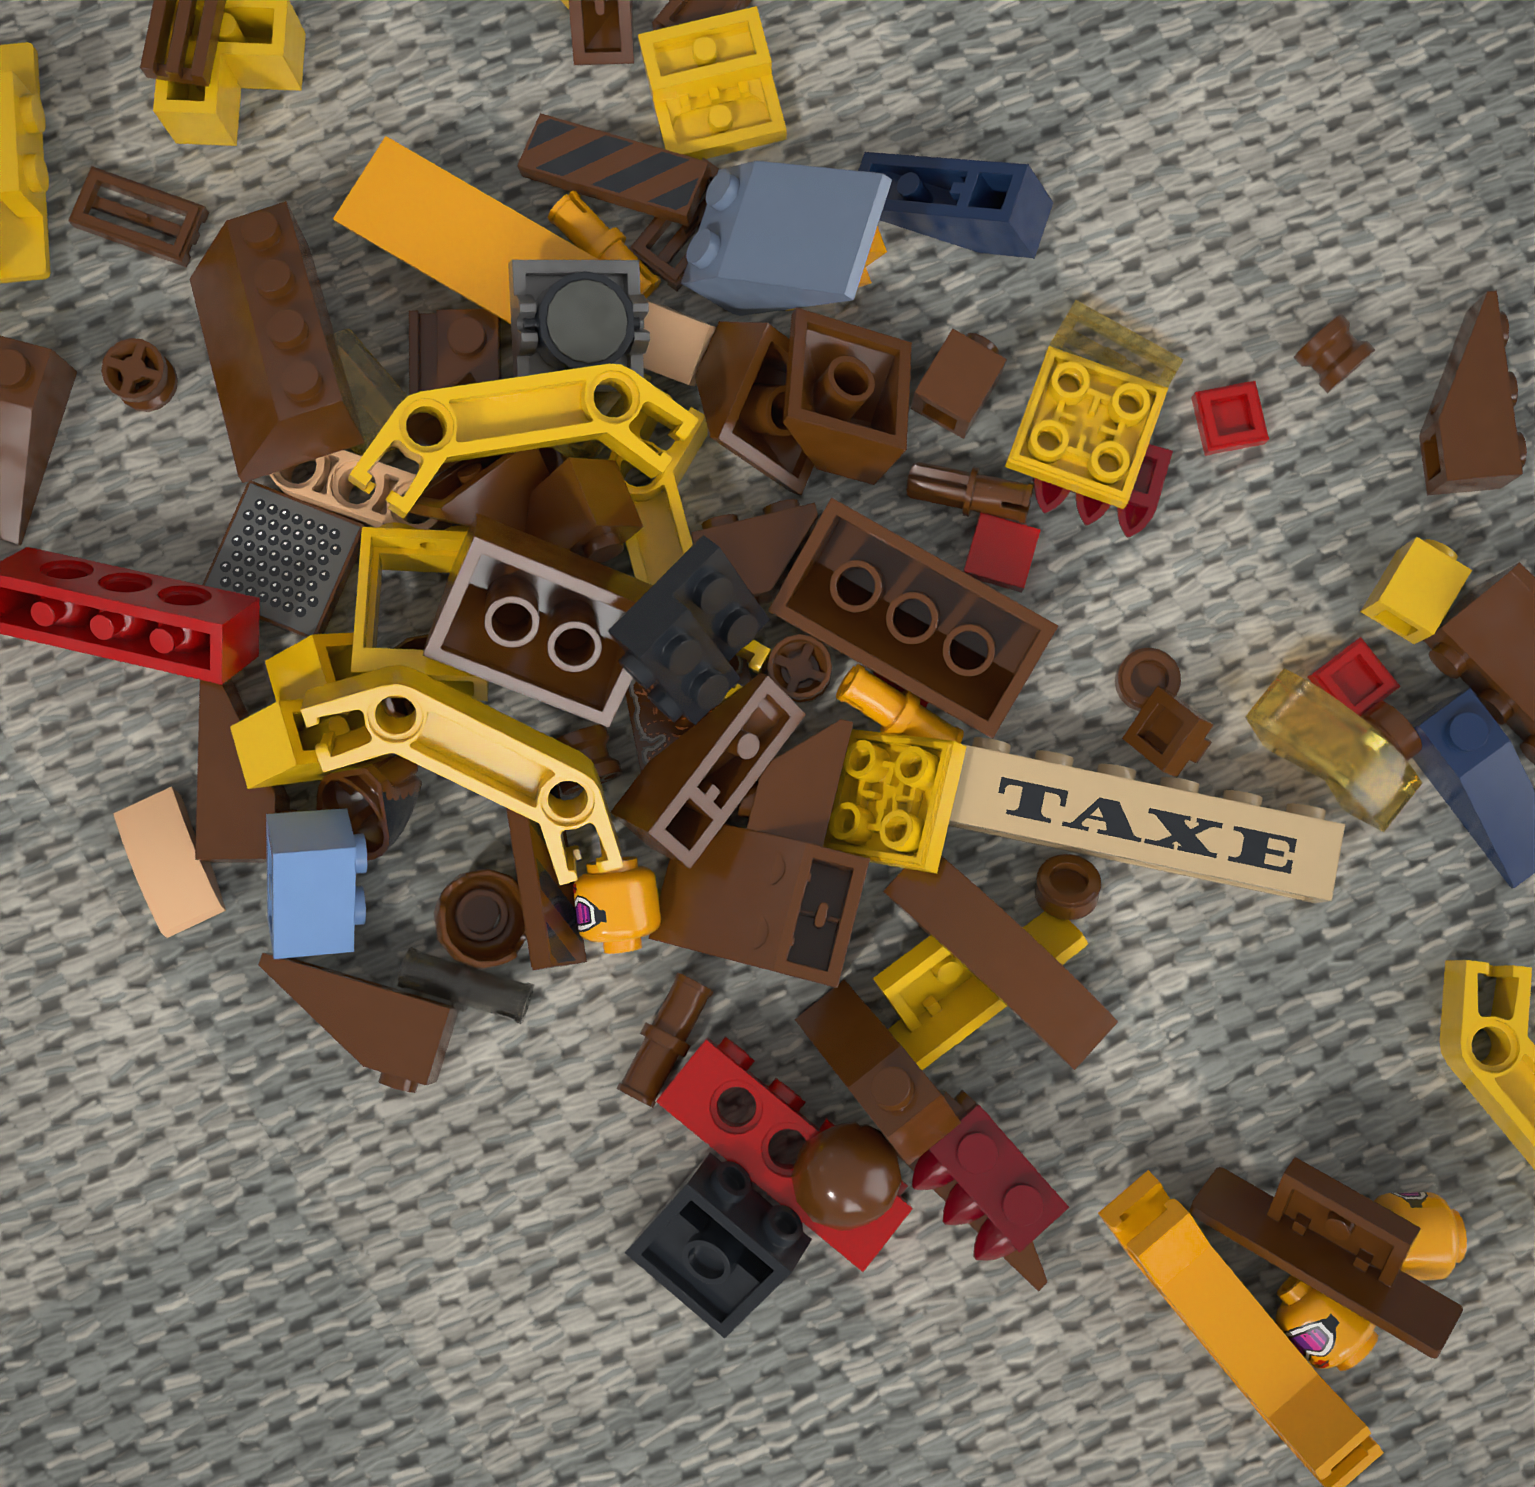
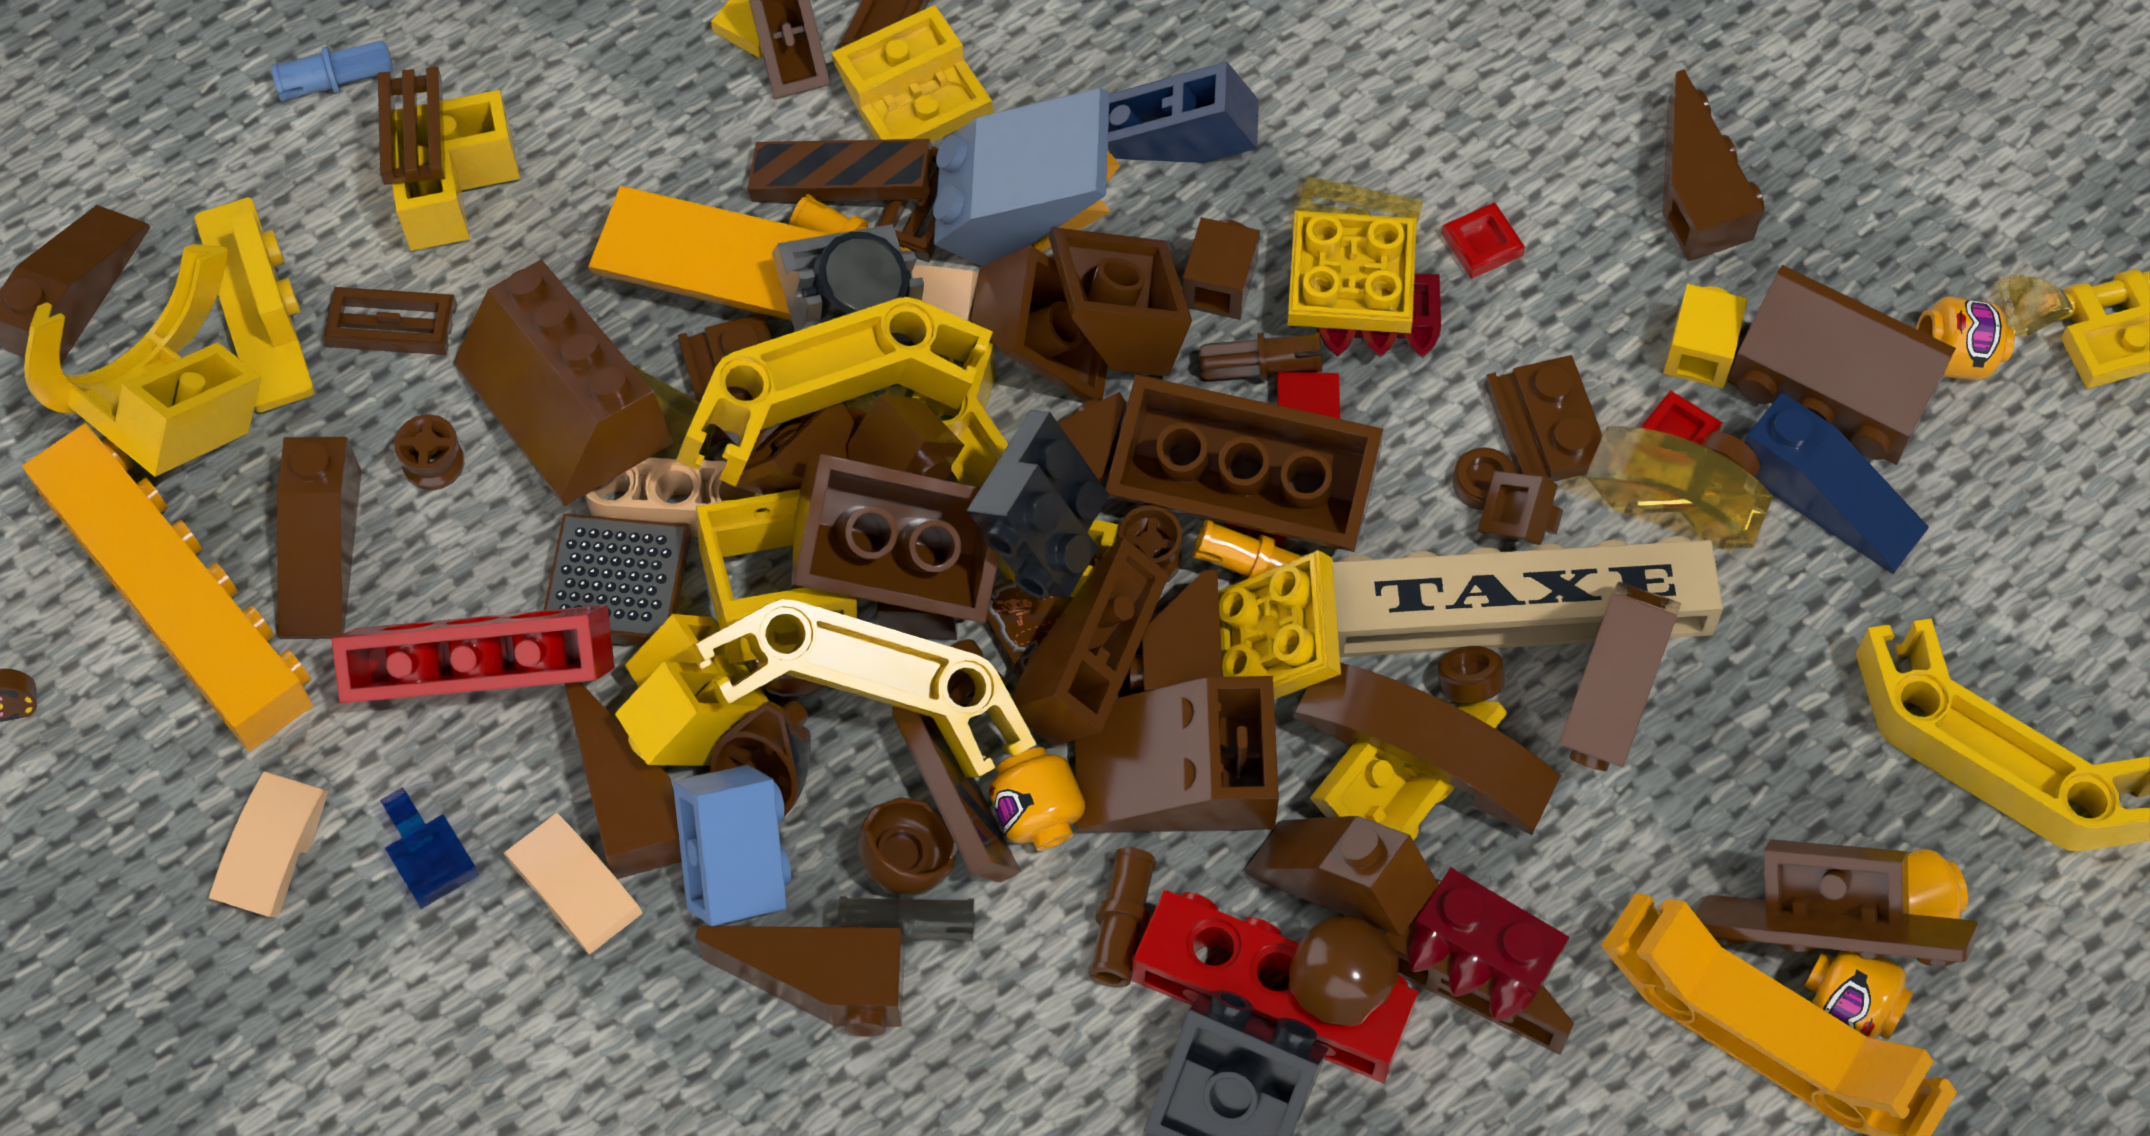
camera: 15 degrees left, 20 degrees down
(44, 797) = (426, 854): none -> clear blue plate
(1207, 954) = (1619, 677): none -> reddish brown brick
(1228, 634) = (1546, 418): none -> reddish brown plate
(1334, 353) = (1558, 160): reddish brown wheel -> none

